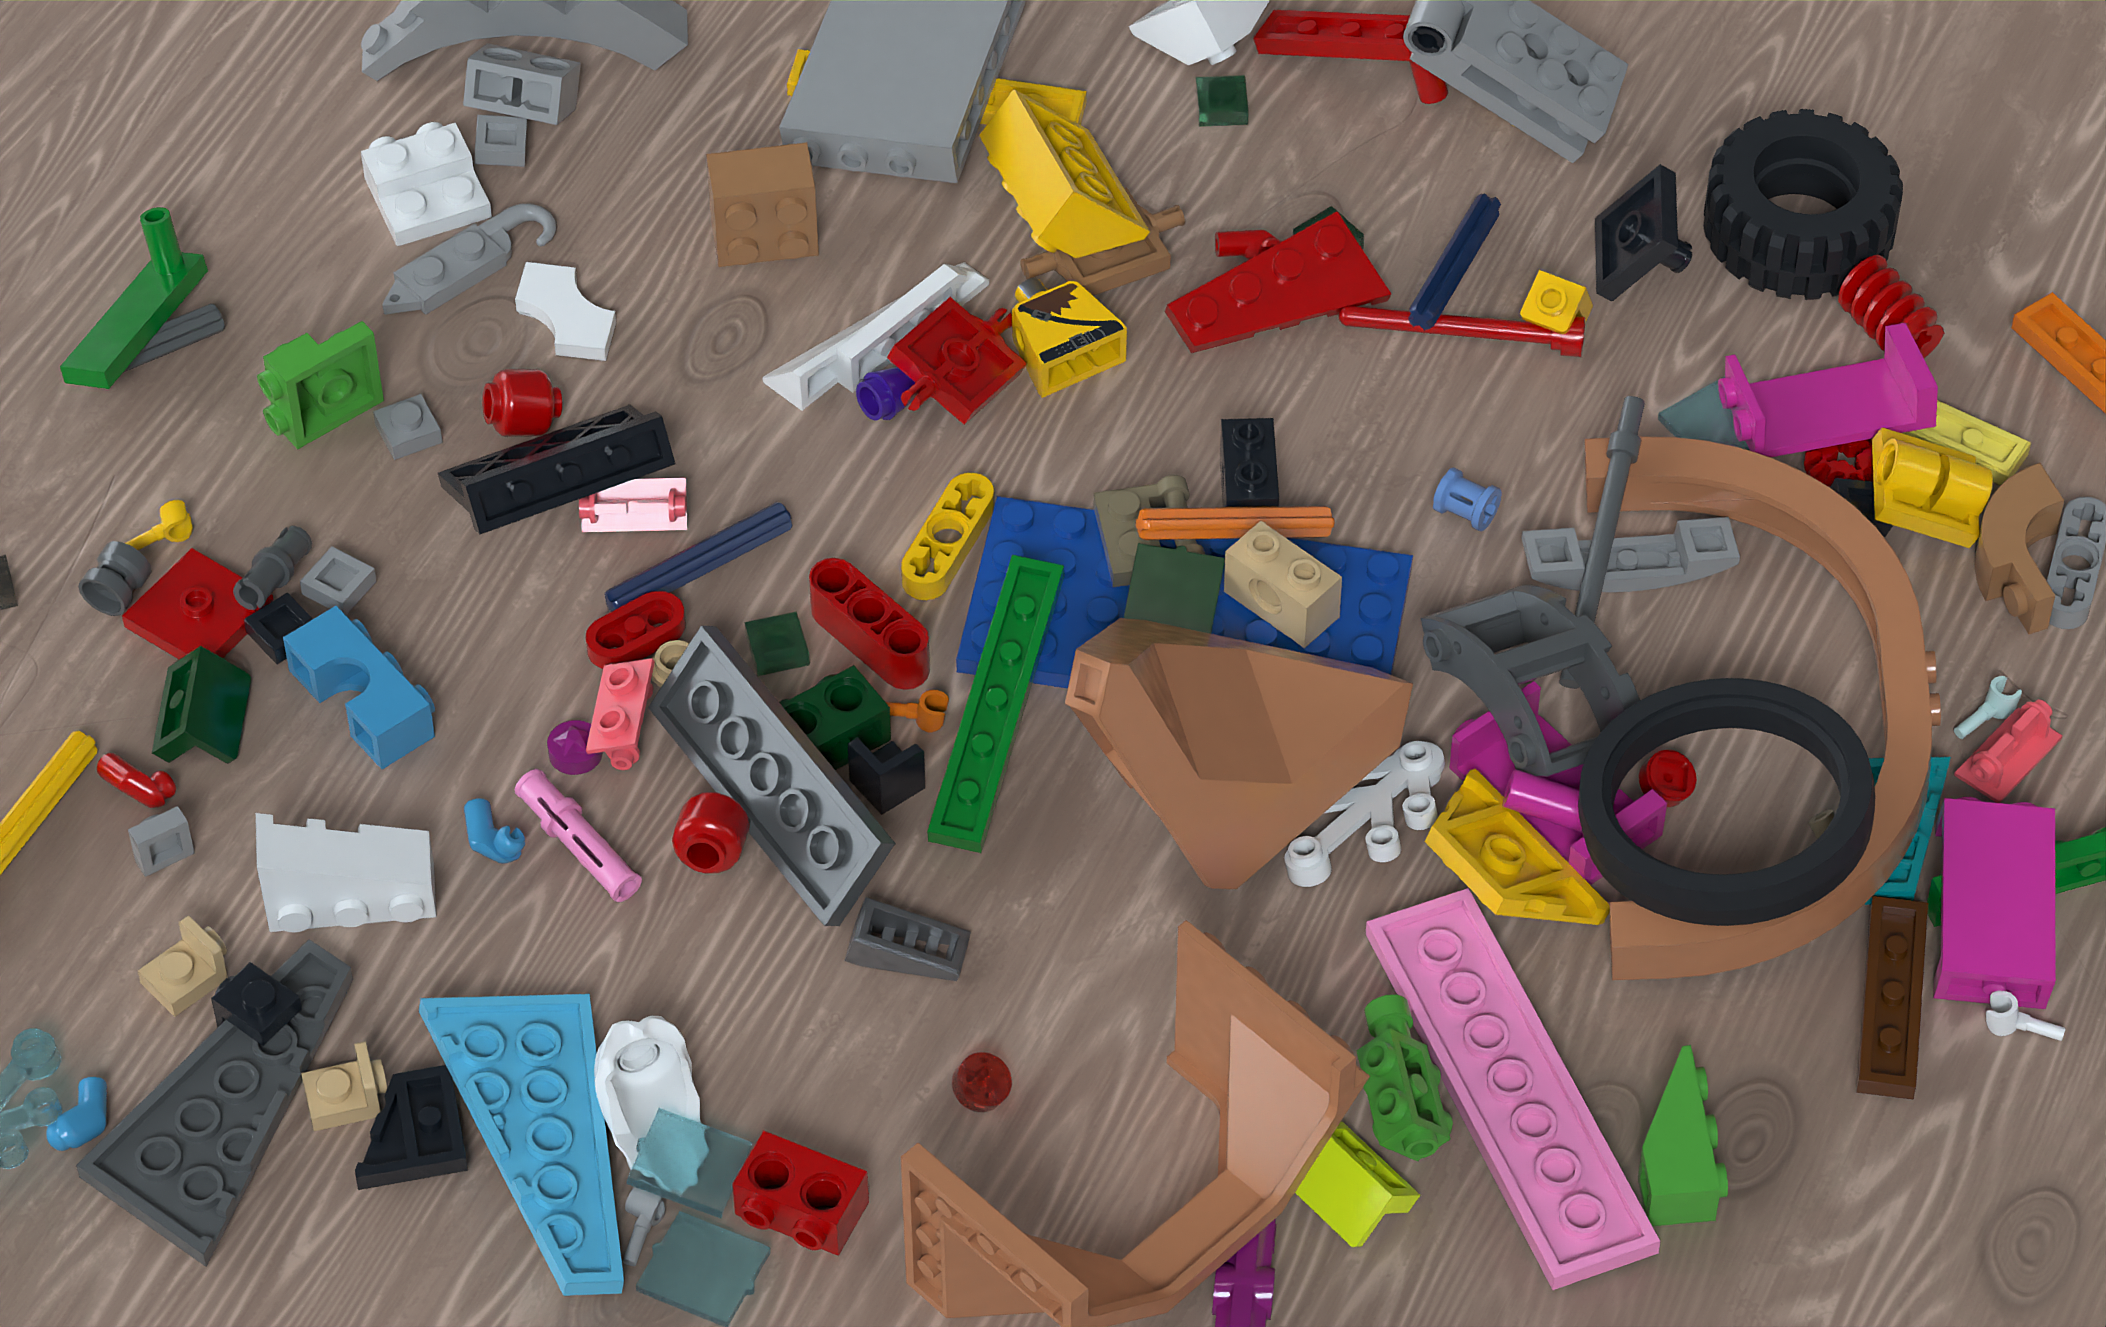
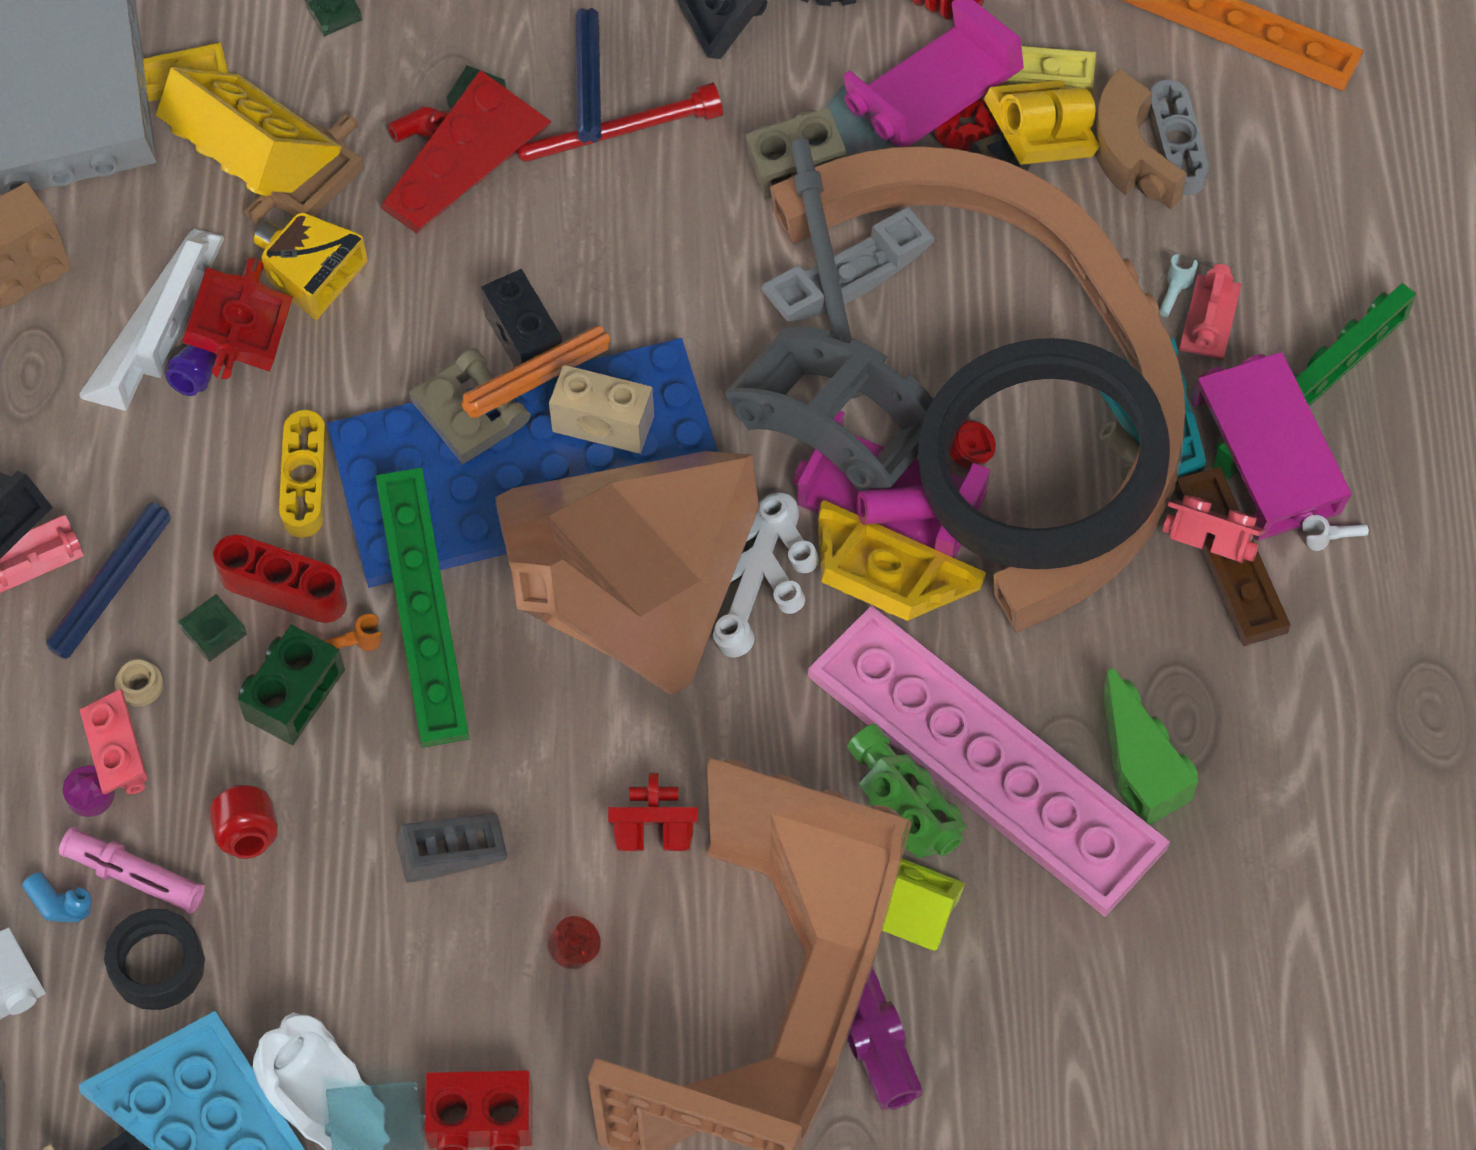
camera: 25 degrees left, 10 degrees up
(548, 891) = (143, 925): none -> black tyre
(632, 629) = (86, 668): red plate -> none
(767, 764) = (273, 748): dark grey plate -> none
(887, 774) = (360, 704): black panel -> none
(1103, 991) = (676, 821): none -> red hips
(1174, 587) = (517, 450): dark green piece -> none
(1484, 499) = (699, 272): medium blue bush -> none
(1555, 303) = (686, 81): yellow bracket -> none
(1664, 413) = (777, 139): none -> dark tan brick
(1899, 968) = (1196, 520): none -> coral hinge

